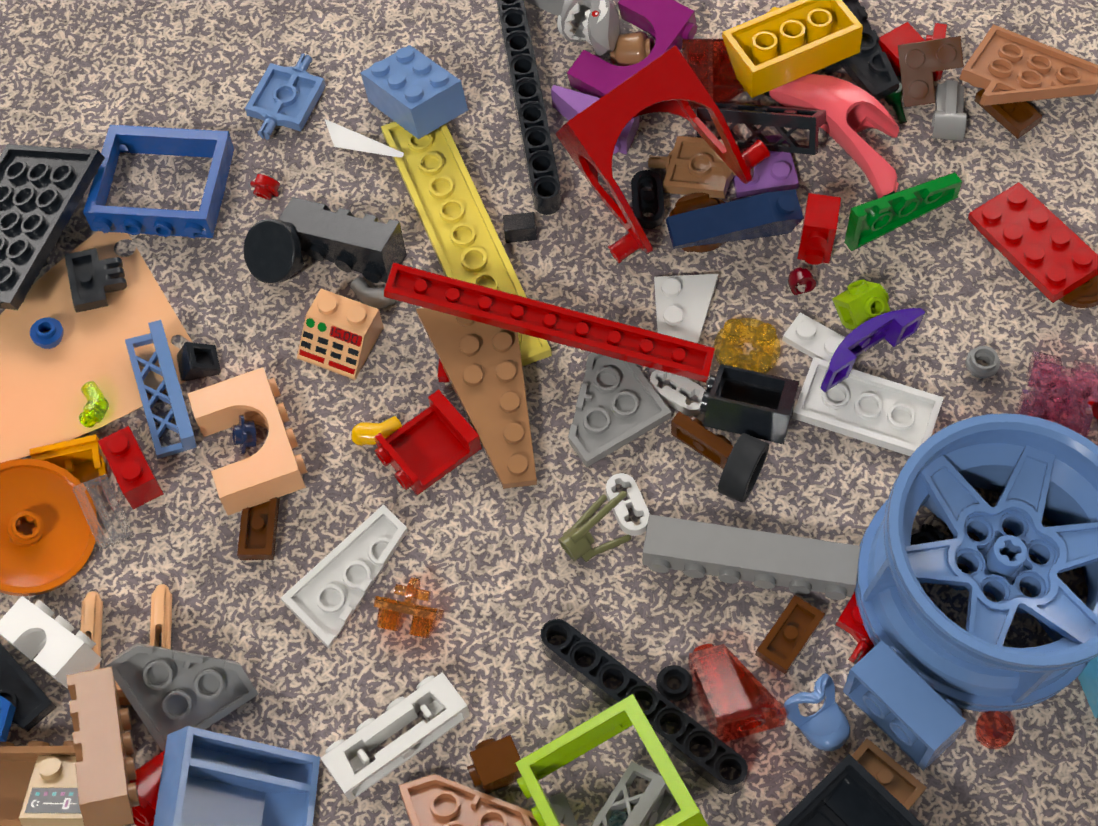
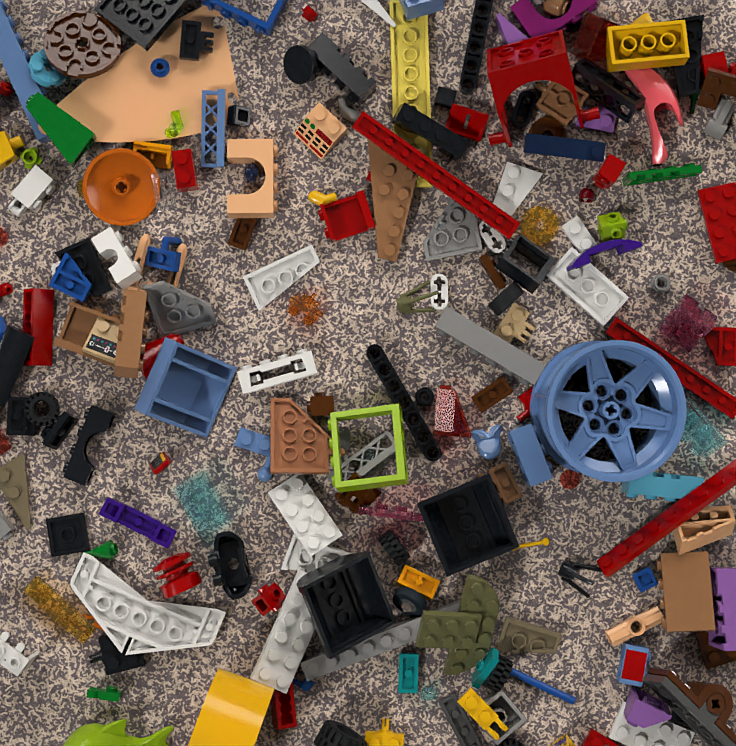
camera: 15 degrees right, 25 degrees up
(134, 613) = (162, 257): none -> blue plate
(549, 276) = (427, 128): none -> black arch
(582, 239) = (475, 125): none -> red piece
(777, 510) = (514, 325): none -> tan hinge

